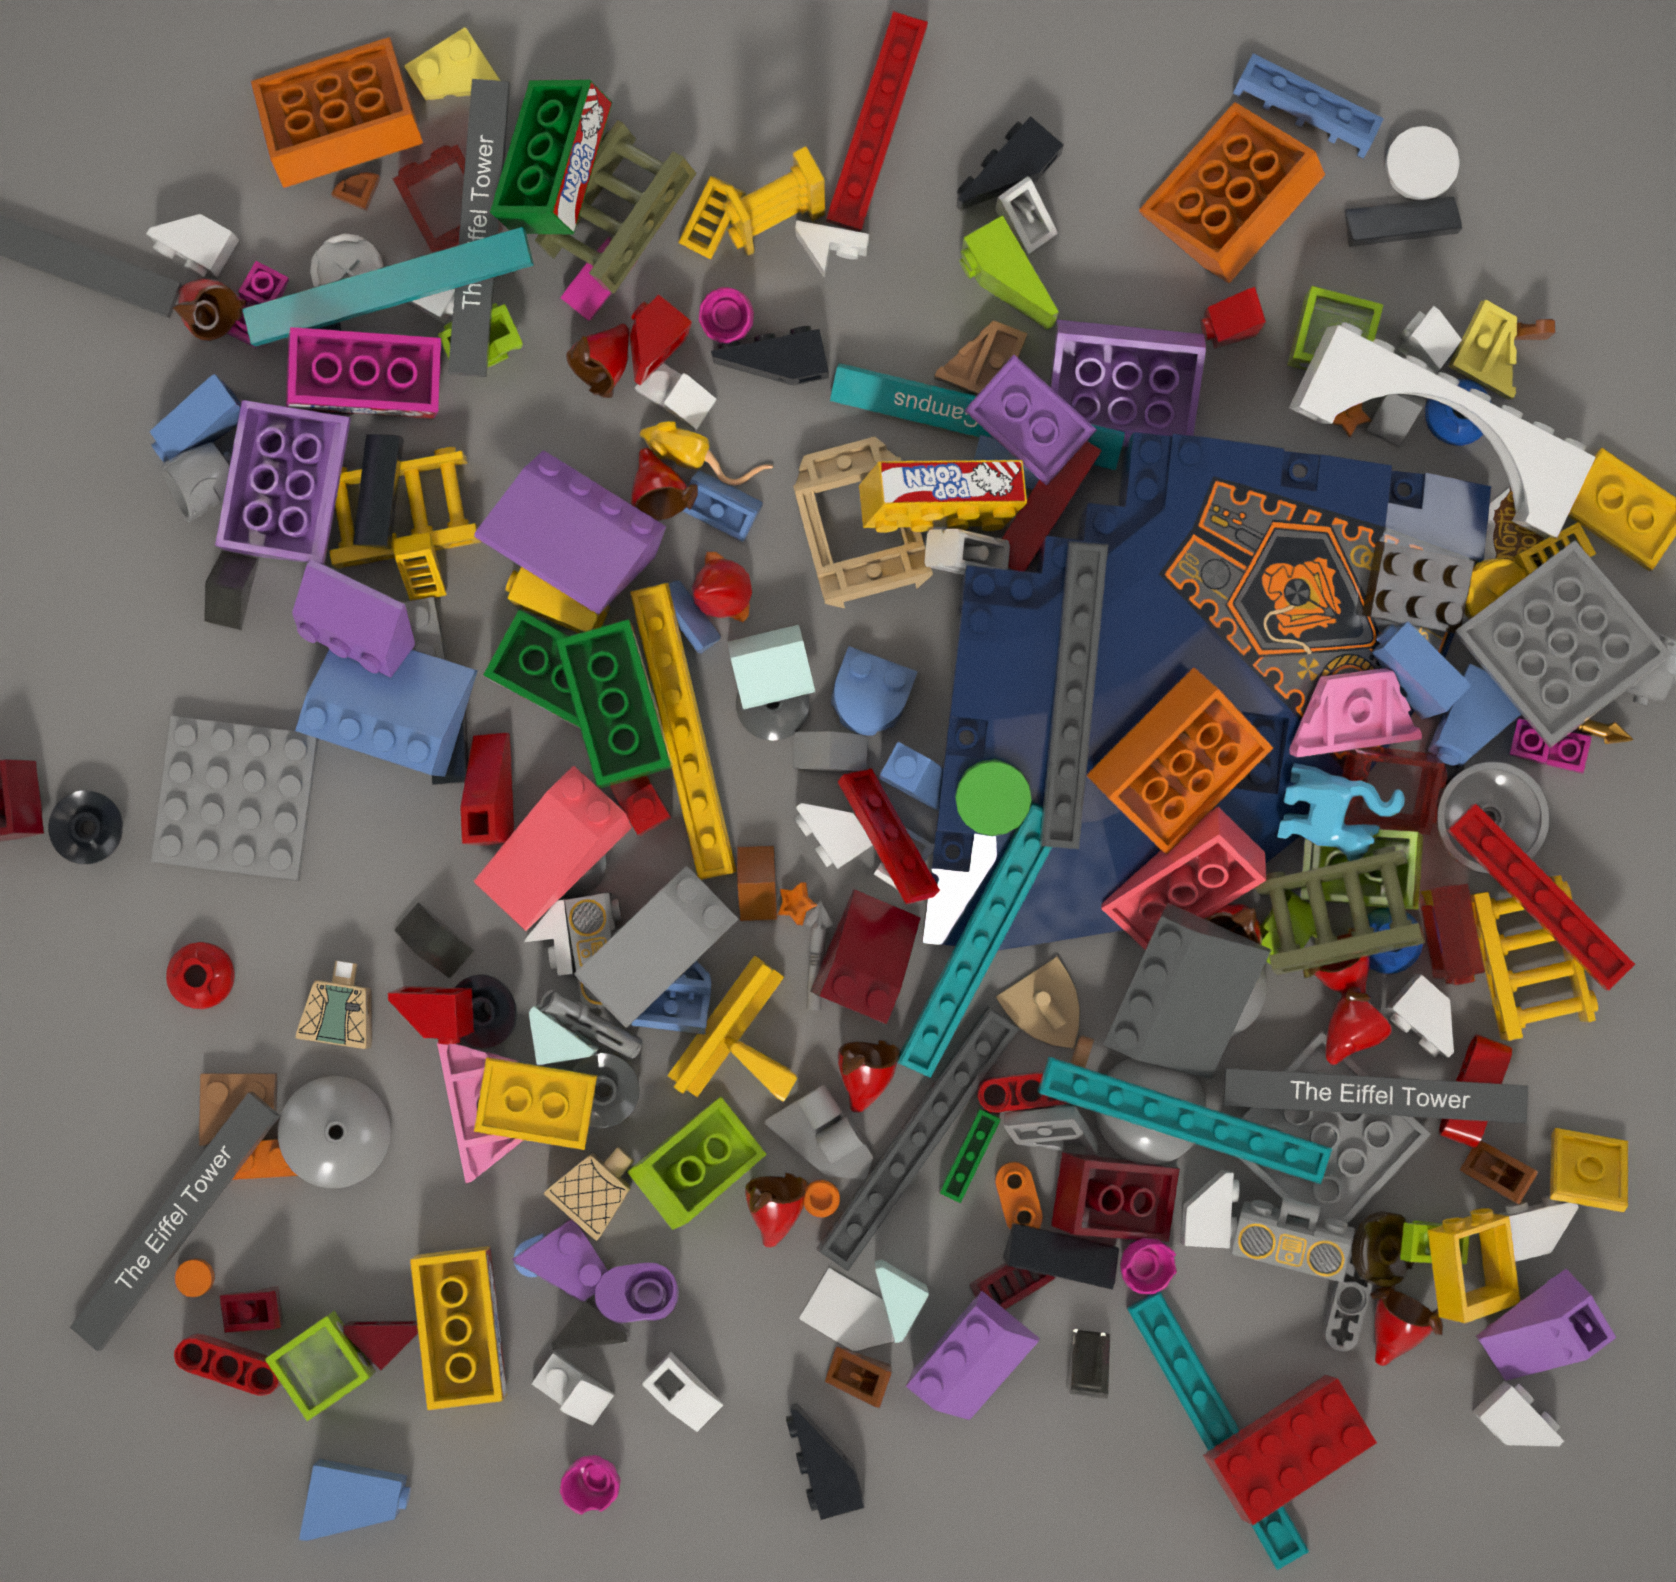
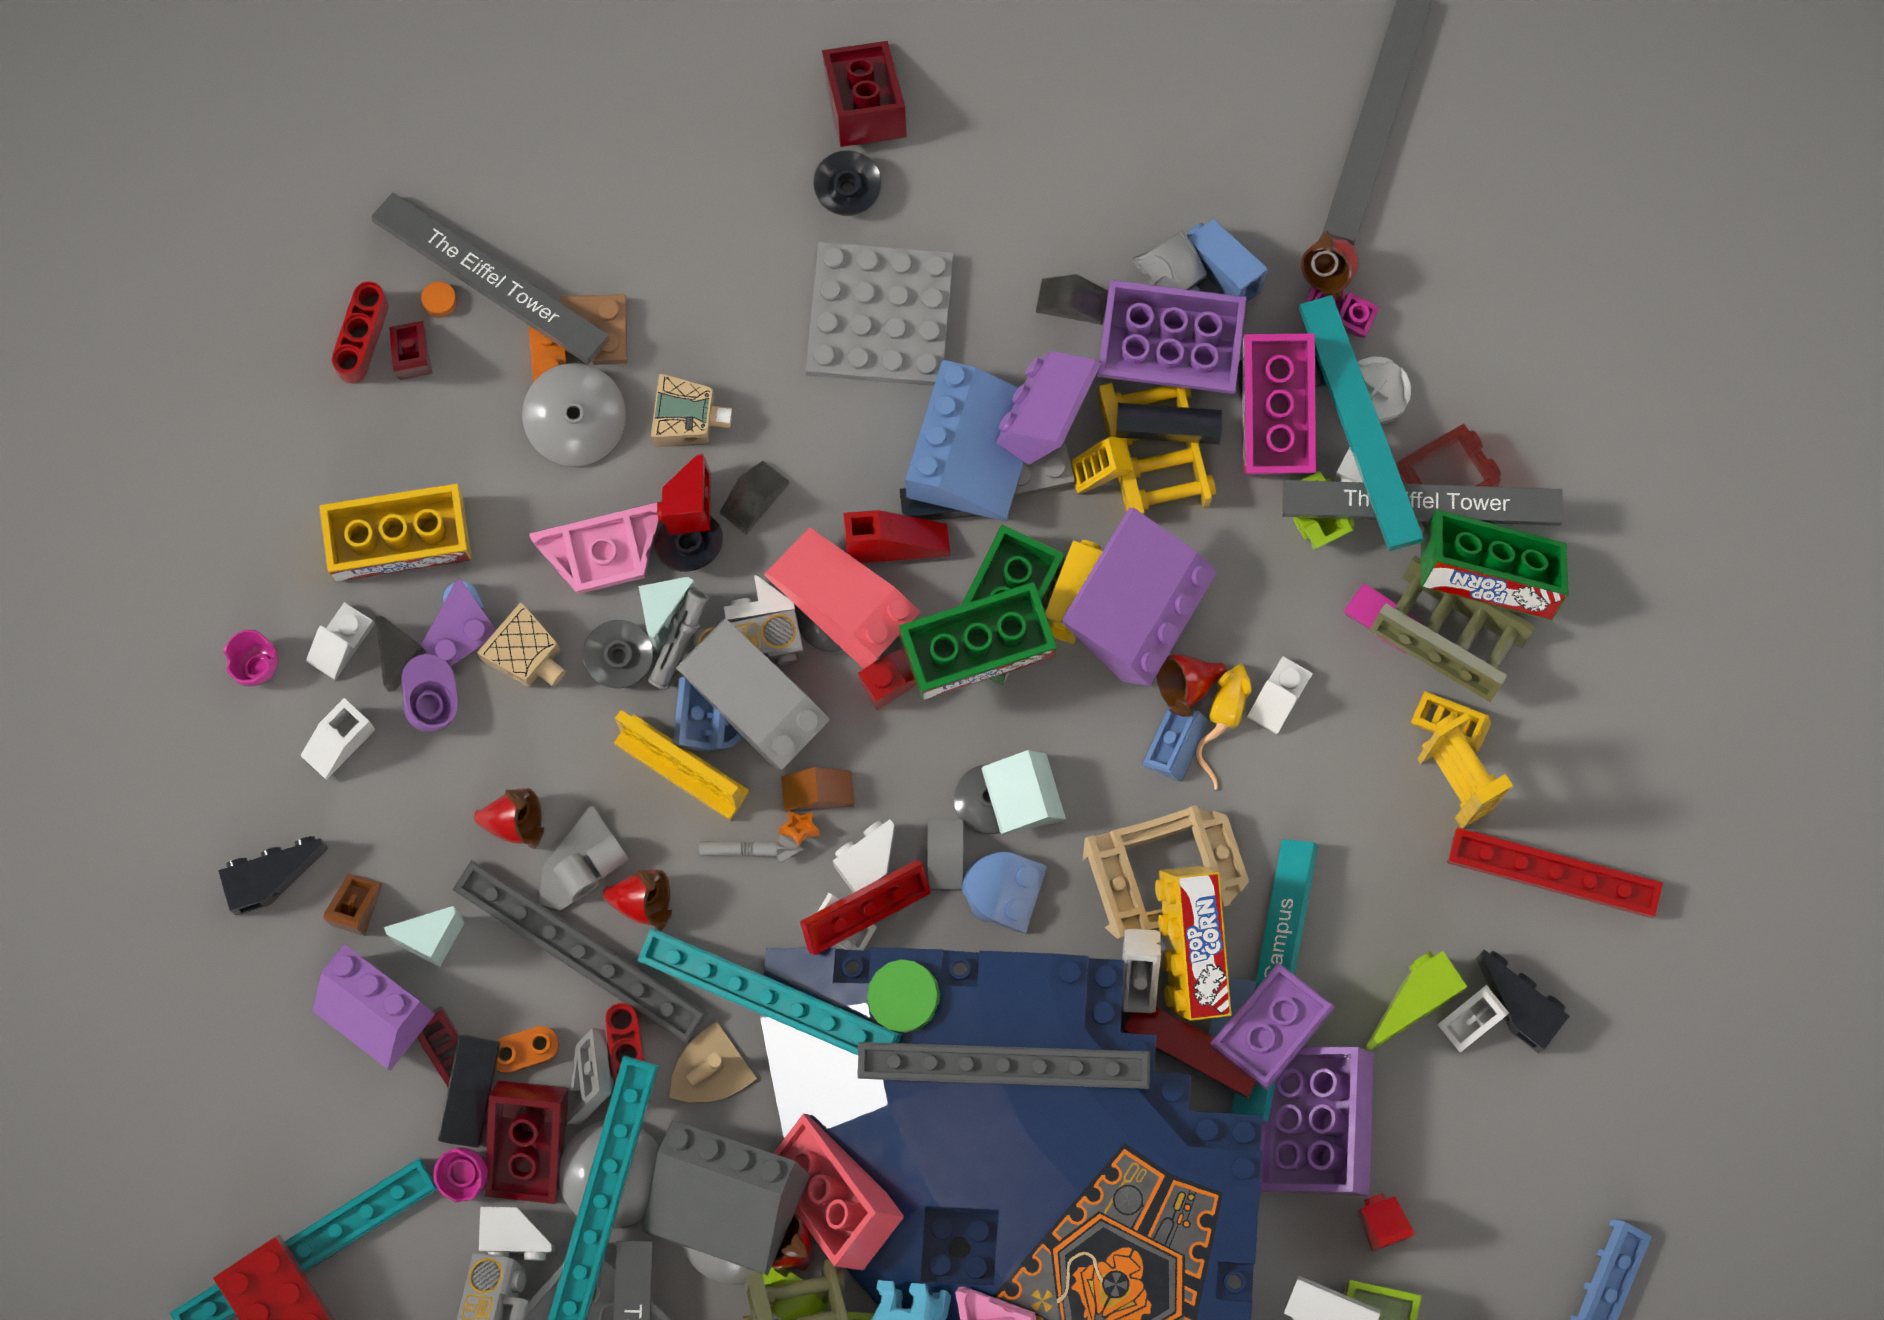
camera: 85 degrees right, 10 degrees down
(197, 240) = (1394, 255): white slope -> none
(218, 981) = (715, 306): red piece -> none
(320, 1366) = (359, 411): piece -> none
(336, 112) = (1524, 372): orange slope -> none
(350, 1498) = (239, 444): medium blue slope -> none
(357, 189) = (1453, 396): dark orange tile -> none
(381, 1339) = (383, 463): dark red slope -> none
(450, 67) = (1576, 473): light yellow wing -> none
(535, 1103) = (604, 593): yellow tile -> none
(601, 359) = (1308, 624): hat -> none
(655, 336) = (1332, 672): red slope -> none
(683, 731) = (957, 713): yellow tile -> none
(692, 620) = (1068, 714): medium blue slope -> none
(696, 1163) = (551, 744): lime slope -> none
(722, 588) = (1095, 744): red hat -> none
(726, 315) = (1357, 737): dark pink hair -> none
(770, 1073) = (638, 807): yellow slope -> none
(785, 359) = (1319, 796): black slope -> none
(821, 239) = (1433, 823): white slope -> none
(821, 1198) = (521, 863): orange tile -> none
(848, 1313) = (413, 888): white sticker -> none
(868, 957) = (750, 895): dark red slope -> none
(914, 775) = (926, 922): medium blue slope -> none
(969, 1155) = (563, 1000): green piece -> none
(982, 357) = (1333, 983): medium nougat wing -> none
(1082, 1051) = (664, 1103): medium nougat tile -> none
(1089, 1364) = (366, 1121): clear smoke slope -> none
(1180, 760) = (945, 1173): orange slope -> none
(1233, 191) = (1512, 1221): orange slope -> none

